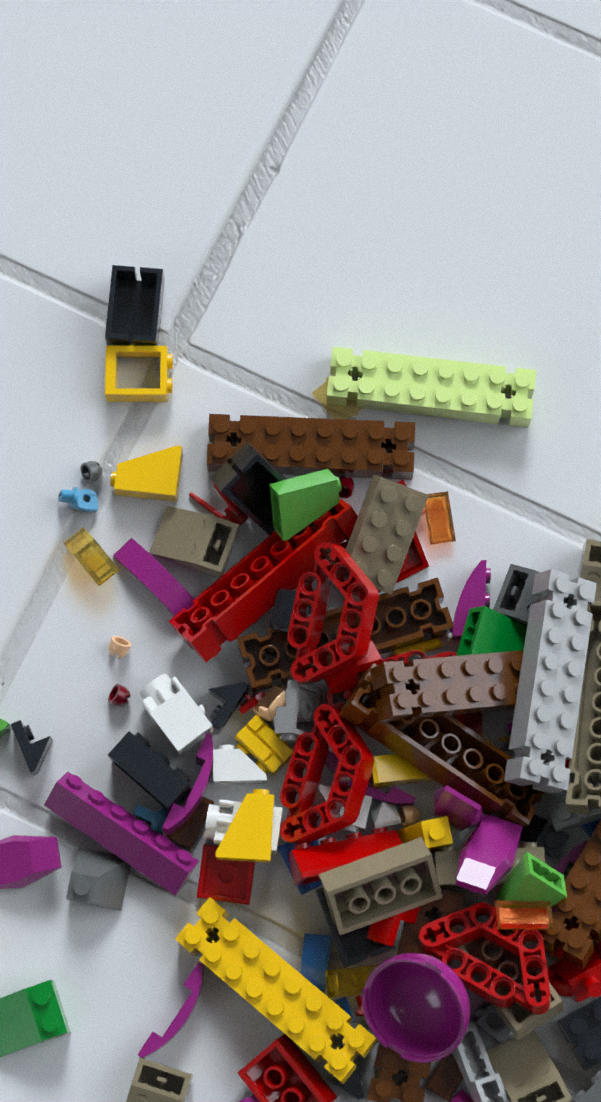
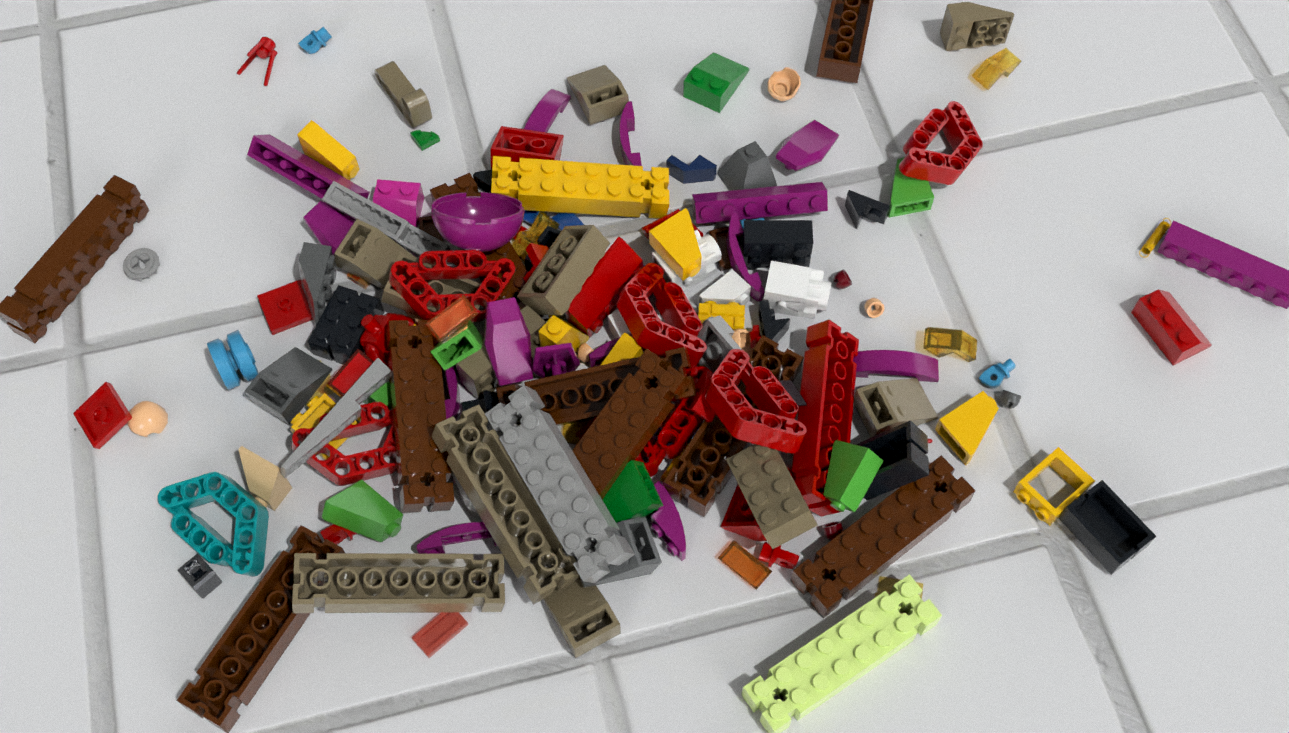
camera: 140 degrees right, 15 degrees down
(140, 922) = (698, 171): none -> dark blue slope
(385, 815) = (600, 337): white slope -> none

